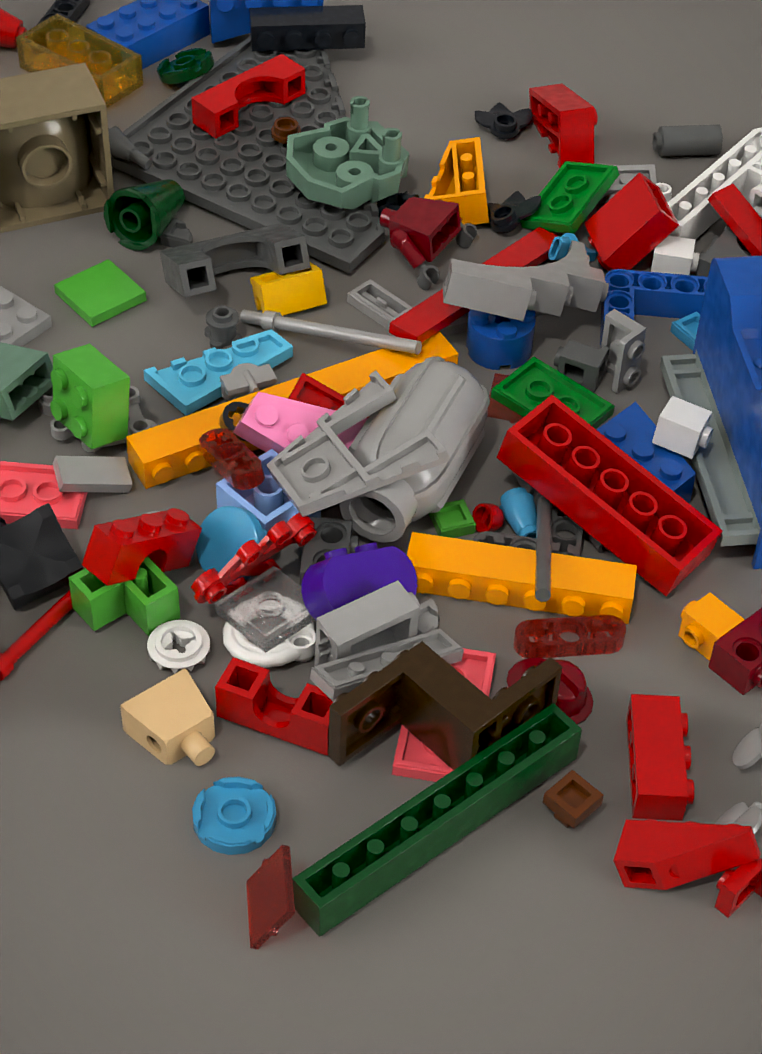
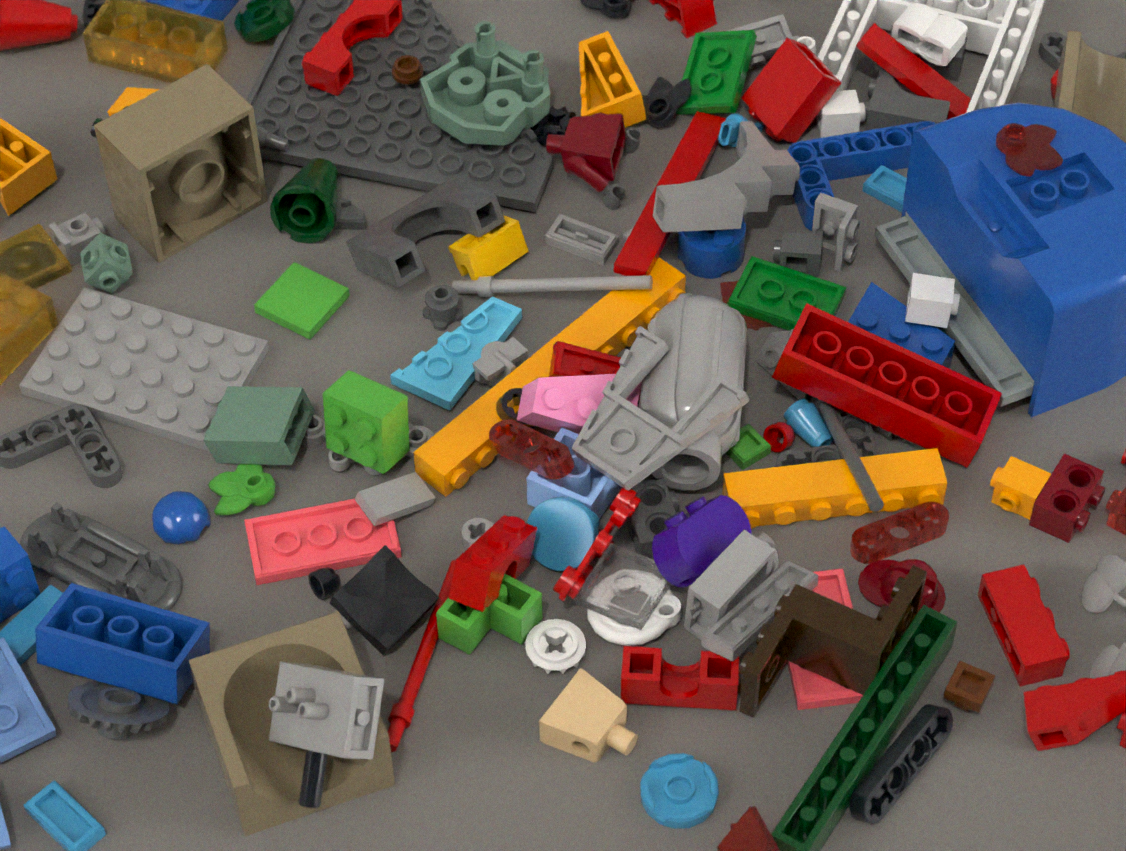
camera: 15 degrees left, 5 degrees up
(472, 860) = (873, 795): none -> black beam

